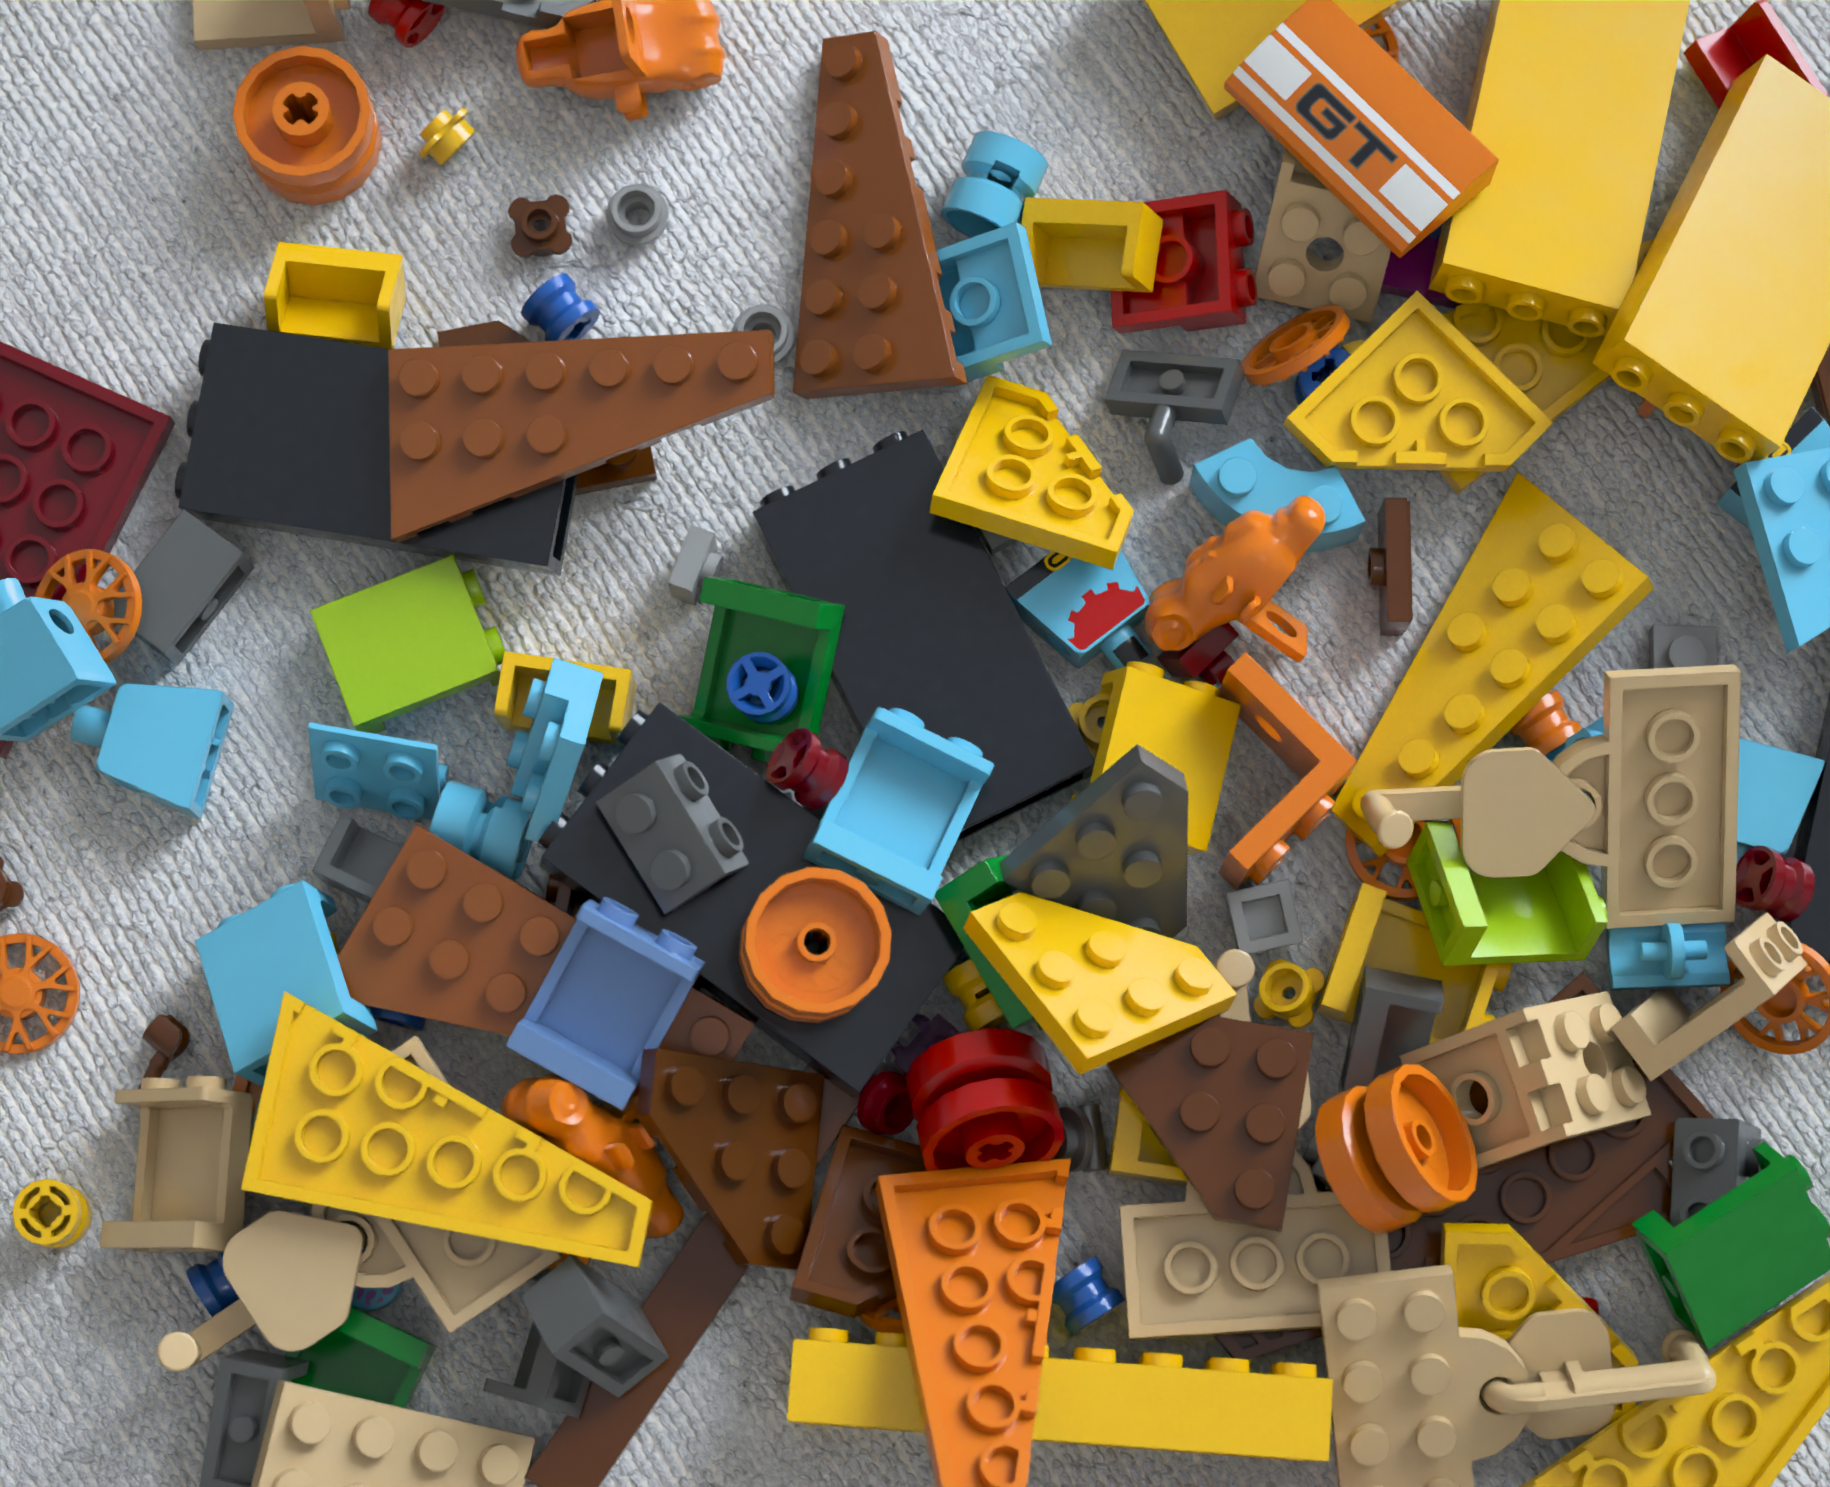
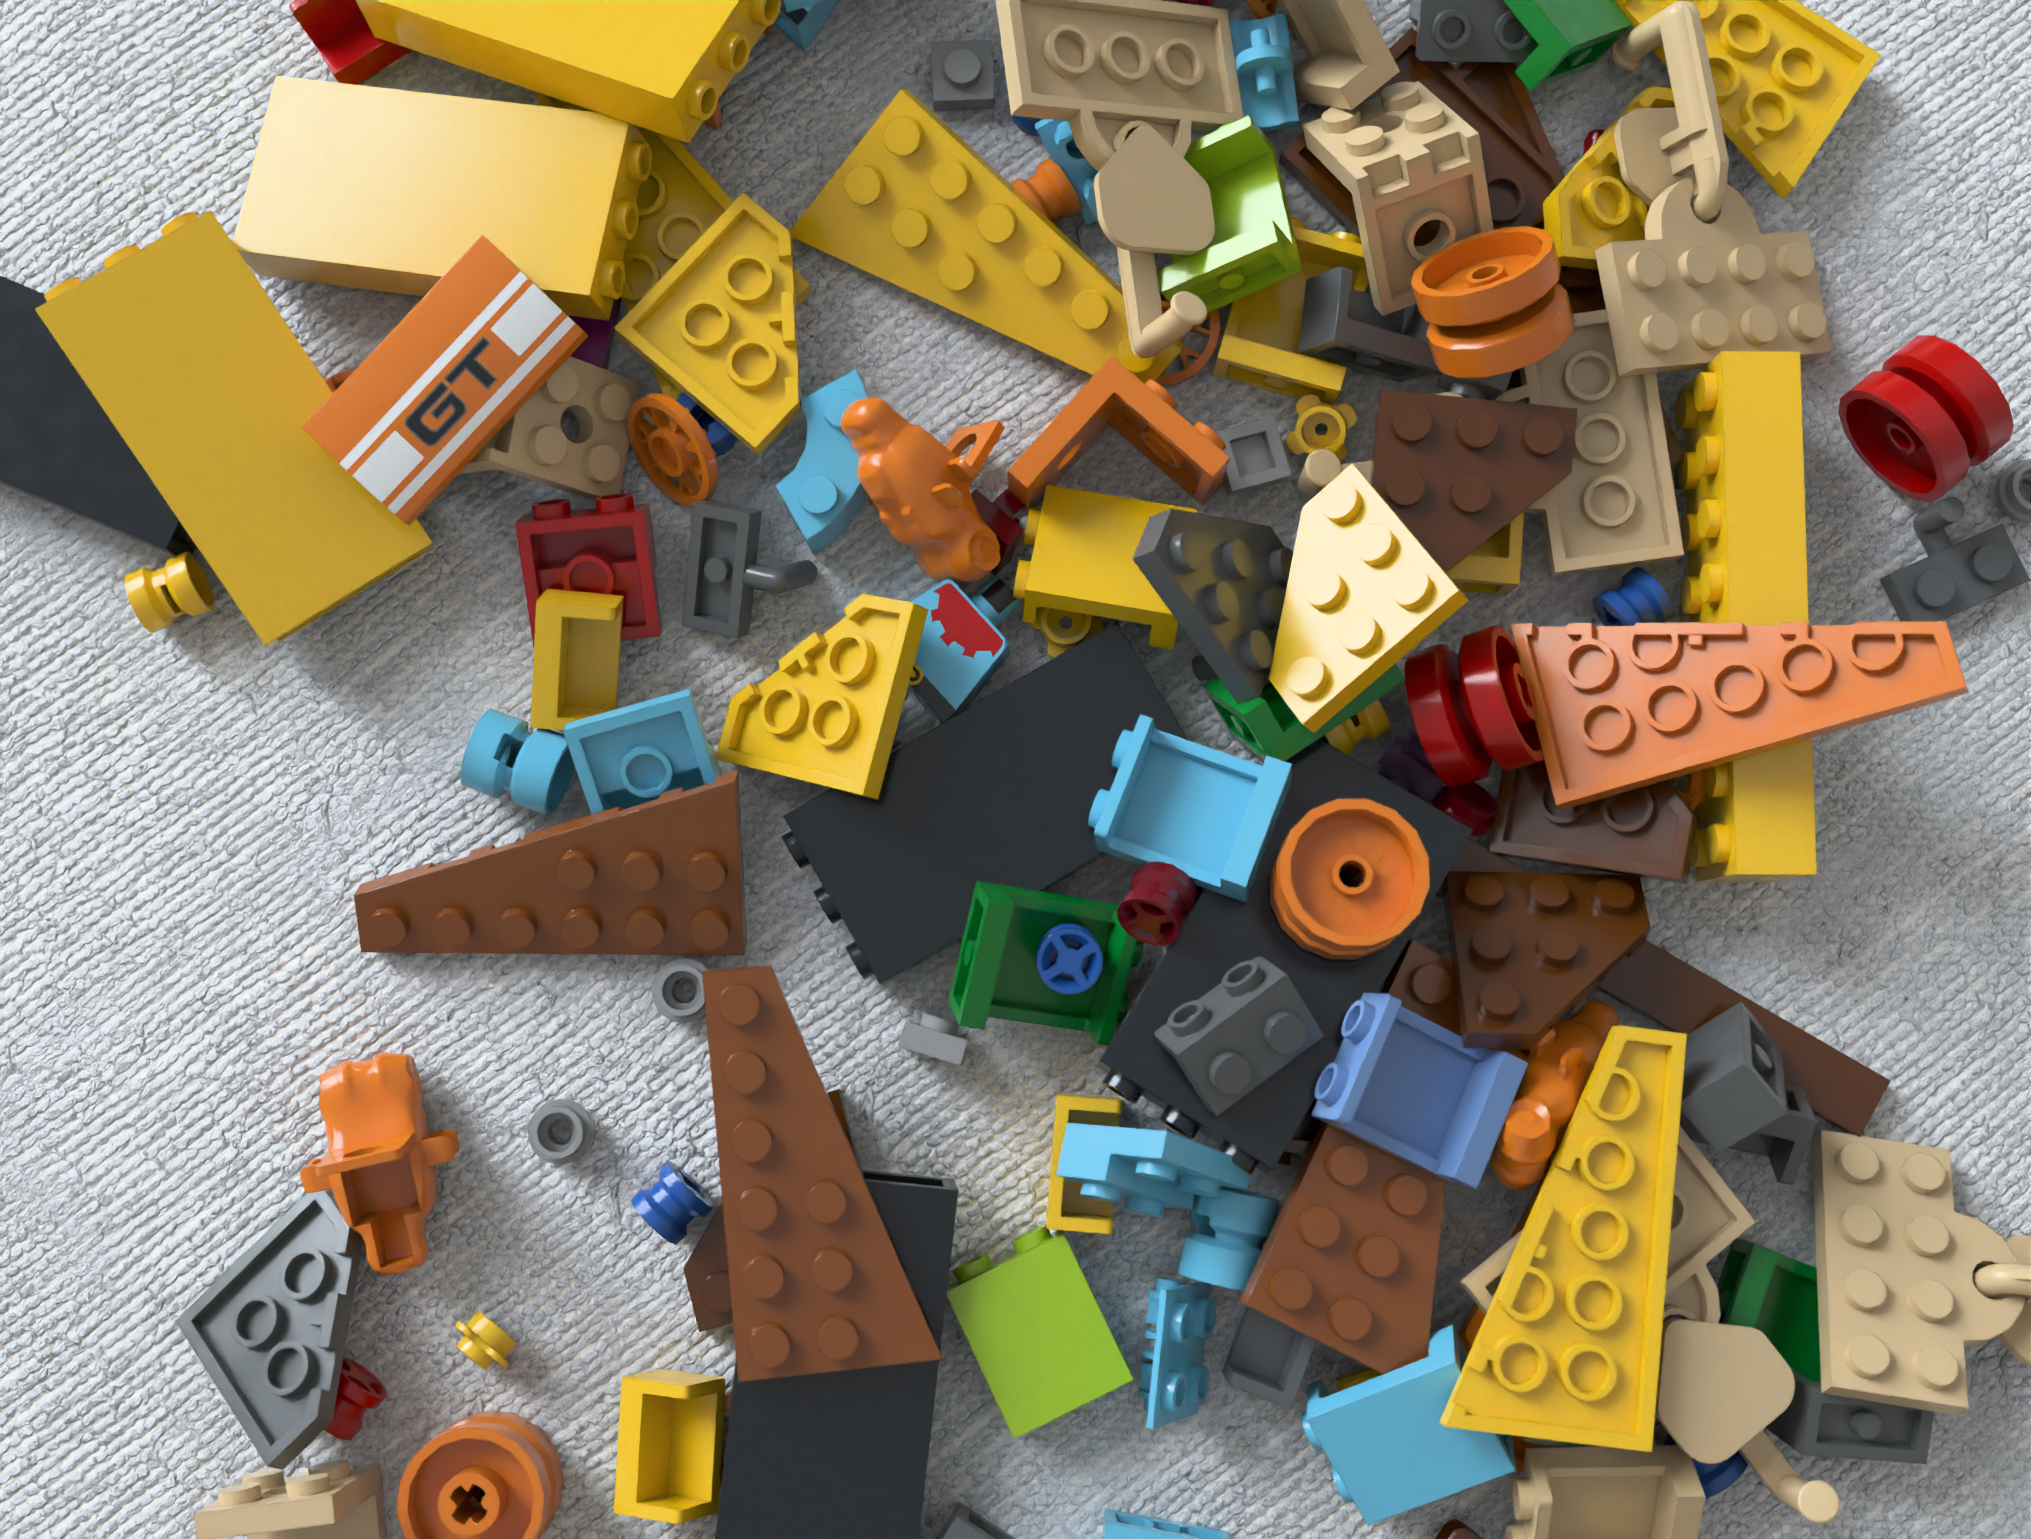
camera: 90 degrees left, 5 degrees up
(553, 239) = (590, 1217): reddish brown plate -> none
(1083, 1138) = (1478, 615): flat silver plate -> none
(1391, 566) = (891, 348): reddish brown plate -> none

